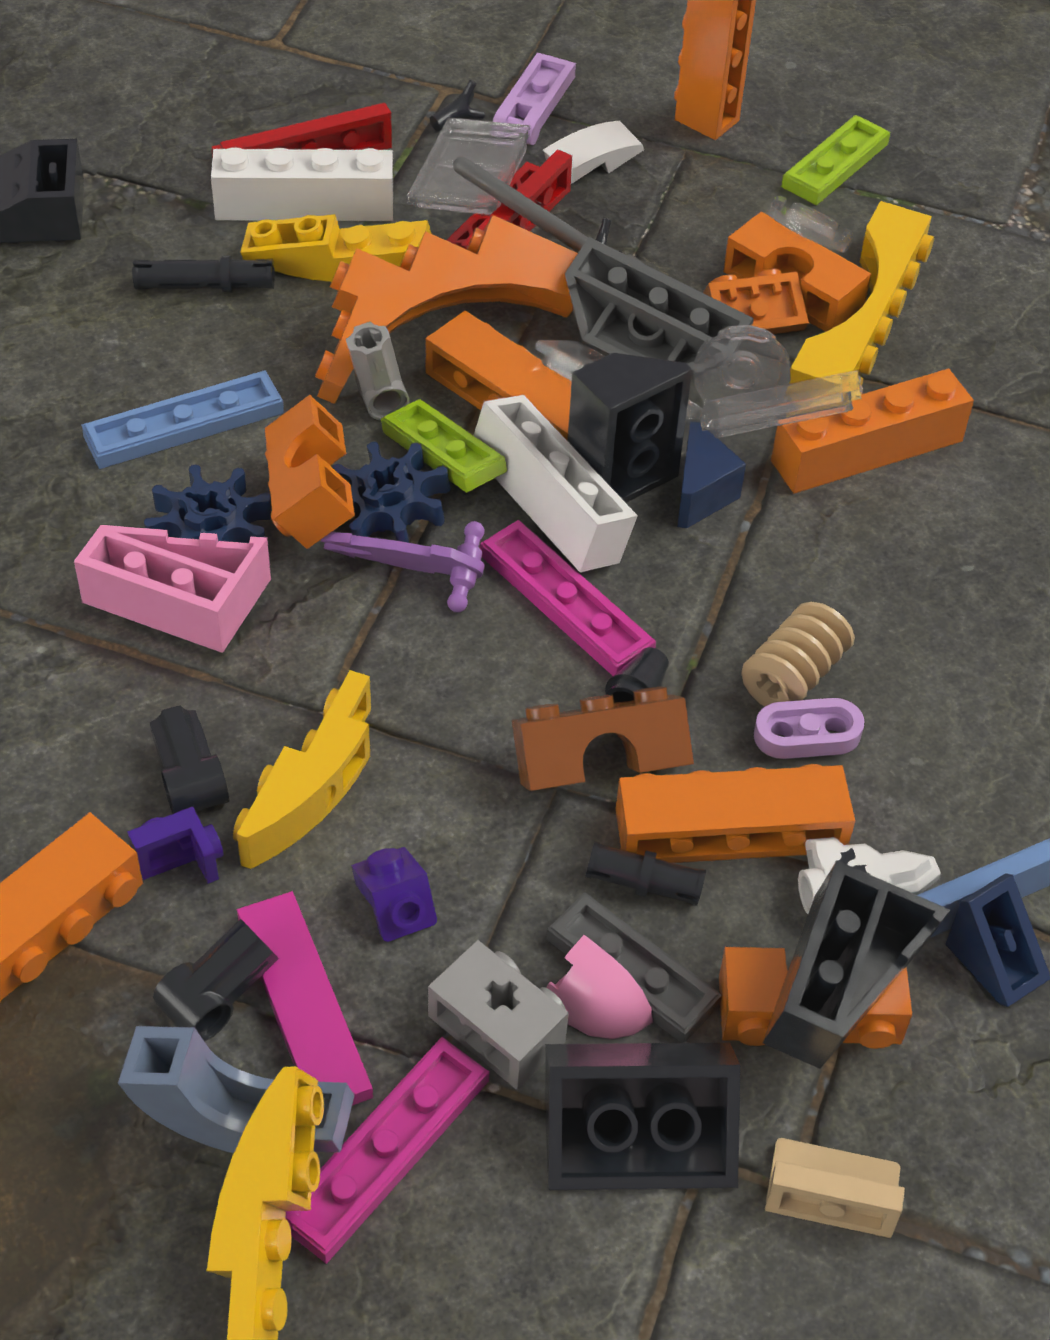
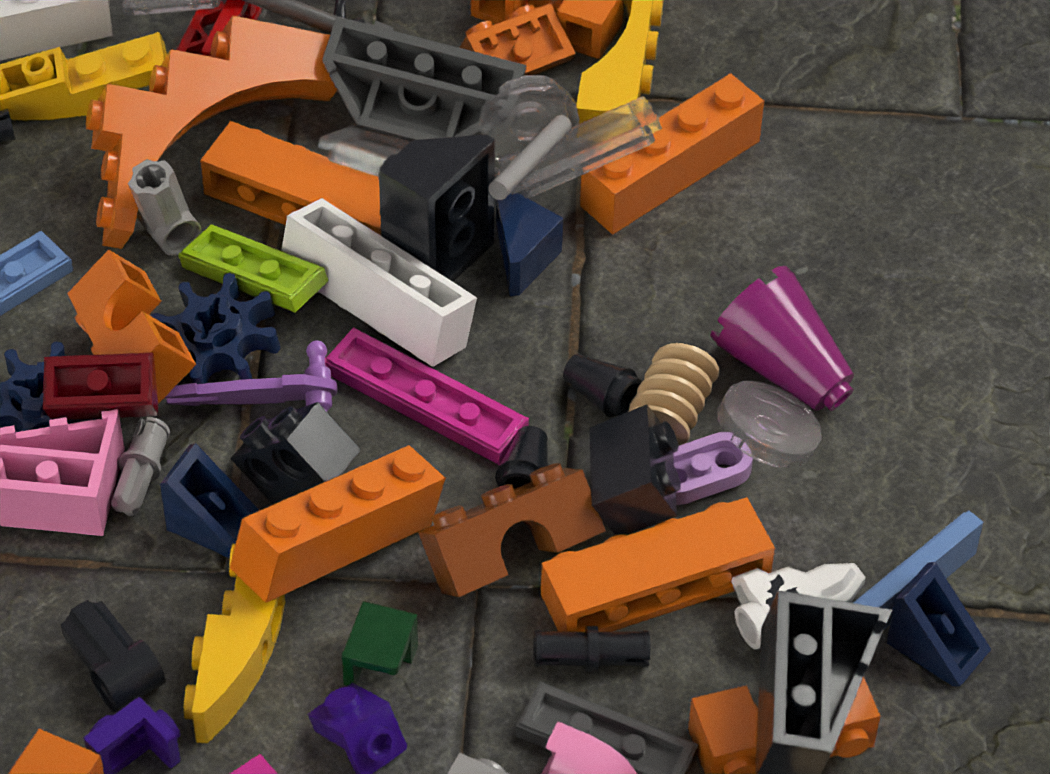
camera: 15 degrees left, 0 degrees up
(248, 509) = (98, 383): none -> dark red slope
(277, 597) = (140, 465): none -> light grey axle
(322, 643) = (203, 502): none -> dark blue slope
(417, 616) = (294, 451): none -> black brick
(432, 691) = (336, 523): none -> orange brick
(439, 814) = (379, 641): none -> dark green panel
(729, 400) = (529, 157): none -> light grey bar
(737, 625) = (602, 383): none -> black cone
(737, 713) = (633, 471): none -> black brick
(888, 702) = (769, 424): none -> clear tile
(927, 626) = (786, 341): none -> magenta cone

